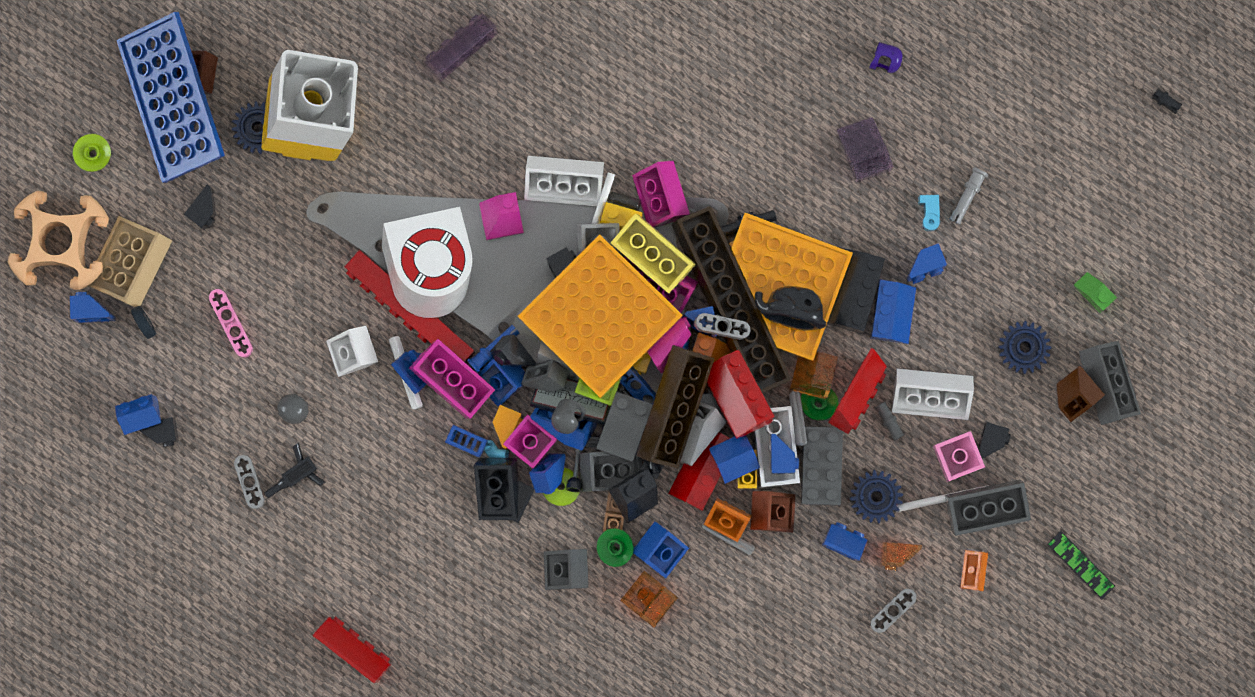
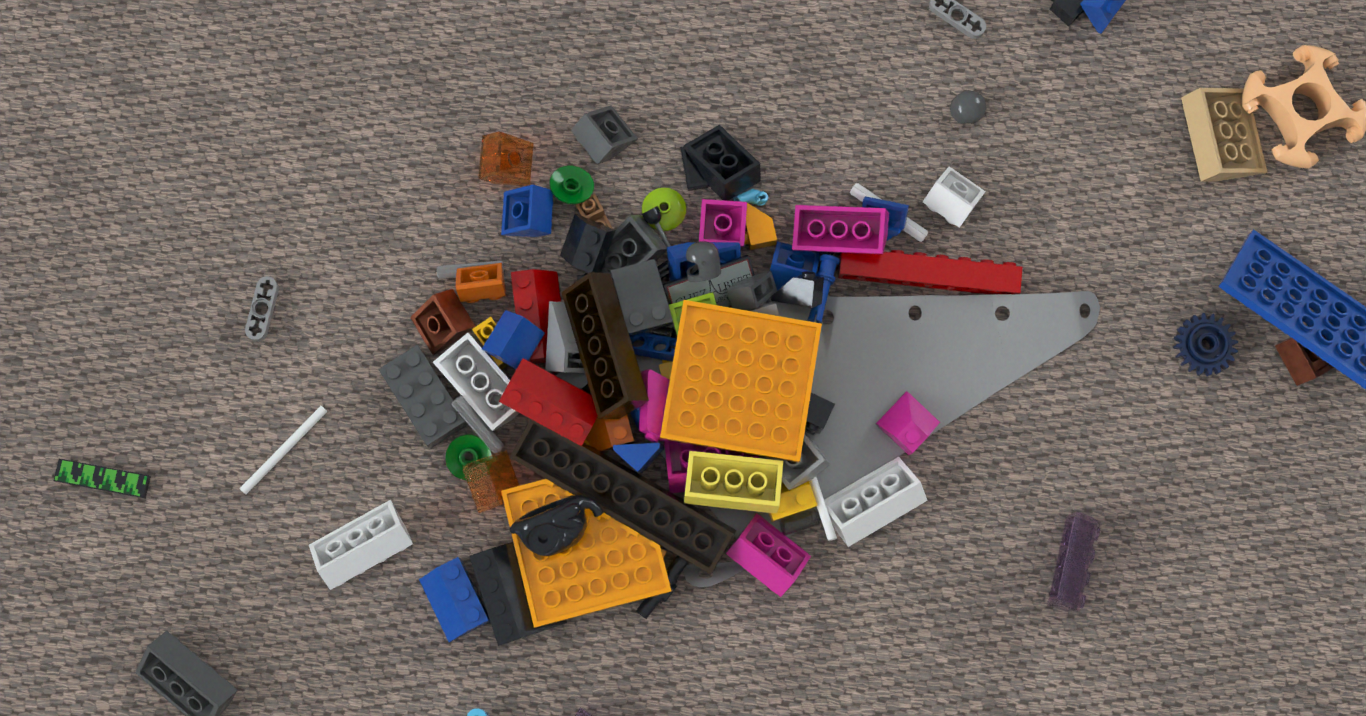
camera: 140 degrees right, 5 degrees down
(87, 309) = (1227, 63): blue slope -> none
(90, 143) = (1347, 204): lime dish -> none
(143, 322) = (1167, 86): black bush -> none
(203, 210) = (1195, 231): black slope -> none
(232, 322) = (1087, 141): bright pink beam -> none
(303, 469) = (917, 57): black piece -> none
(310, 106) = (1178, 390): white piece -> none
(428, 261) = (946, 317): white brick -> none
(452, 434) = (790, 177): blue slope -> none
(548, 473) = (684, 208): blue slope -> none
(736, 324) = (595, 458): light grey beam -> none
(782, 457) = (465, 371): blue slope -> none
(845, 542) = (351, 338): blue slope -> none
(858, 393) = (434, 490): red slope -> none
(885, 488) = (339, 394): dark blue gear -> none
(889, 421) = (386, 488): dark grey pin -> none
(897, 554) = (291, 364): clear orange slope -> none
(927, 262) = (453, 670): blue slope -> none
(958, 456) = (291, 498): bright pink slope -> none
(974, 570) = (206, 401): orange slope -> none
(988, 507) = (229, 468): dark grey brick -> none
(993, 439) = (269, 538): black slope -> none
(1036, 344) = (282, 652): dark blue gear -> none
(1077, 393) = (209, 643): reddish brown slope -> none

